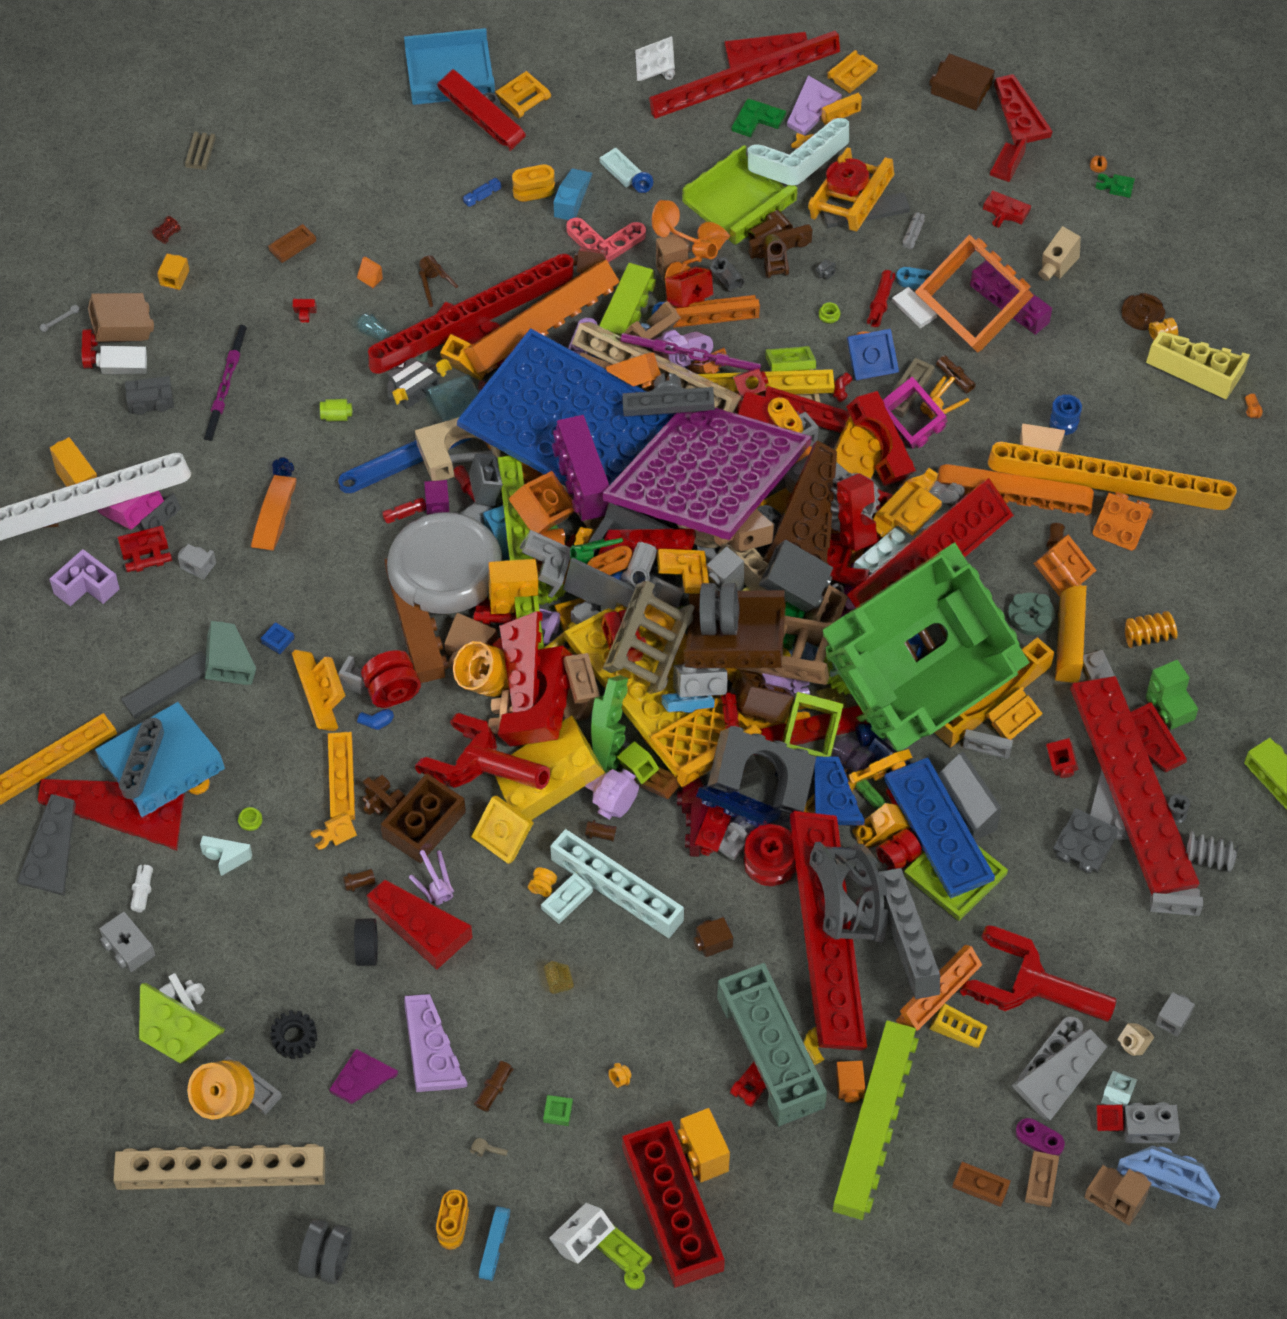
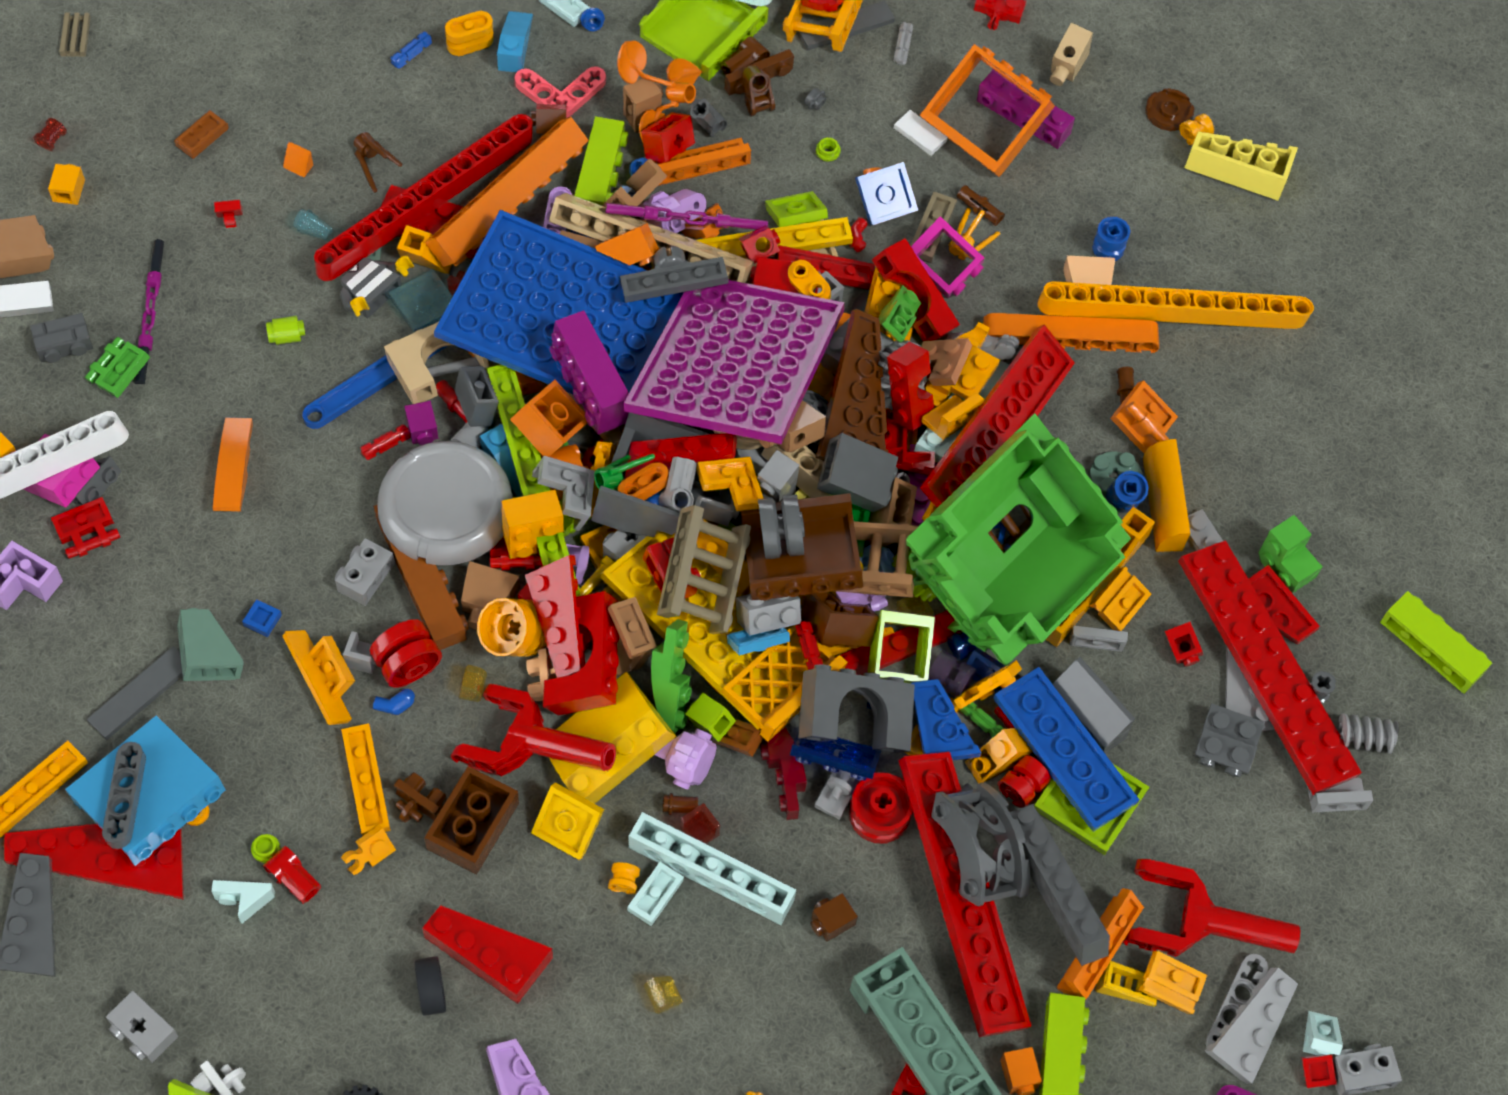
camera: 15 degrees left, 5 degrees up
(141, 888) = (148, 955): white axle -> none
(191, 423) = (121, 370): none -> bright green plate
(196, 560) = (150, 535): light grey brick -> none
(267, 840) = (292, 875): none -> red piece
(277, 470) = (229, 411): clear blue plate -> none
(358, 880) = (407, 906): reddish brown pin -> none
(368, 611) = (364, 571): none -> light grey brick
(439, 890) = (504, 904): lavender plant -> none
(443, 711) = (473, 683): none -> clear yellow brick
(614, 847) = (700, 824): none -> clear red panel
(712, 830) = (810, 789): red hinge -> none
(811, 1046) = (968, 1031): yellow arm -> none
(861, 452) = (899, 313): none -> bright green slope
(879, 304) = (882, 133): red pin -> none
(890, 542) = (952, 415): none -> light orange panel
(894, 495) = (947, 359): none -> nougat plate
(915, 279) = (916, 98): dark azure beam -> none
(996, 1029) = (1173, 982): none -> light orange plate
(1035, 623) = (1127, 491): none -> blue wheel
(1122, 520) = (1195, 355): orange bracket -> none
(1135, 1039) = (1329, 971): tan plate -> none
(1150, 627) = (1249, 478): light orange piece -> none
(1175, 1014) = (1366, 933): light grey brick -> none
(1254, 409) = (1311, 209): orange arm -> none

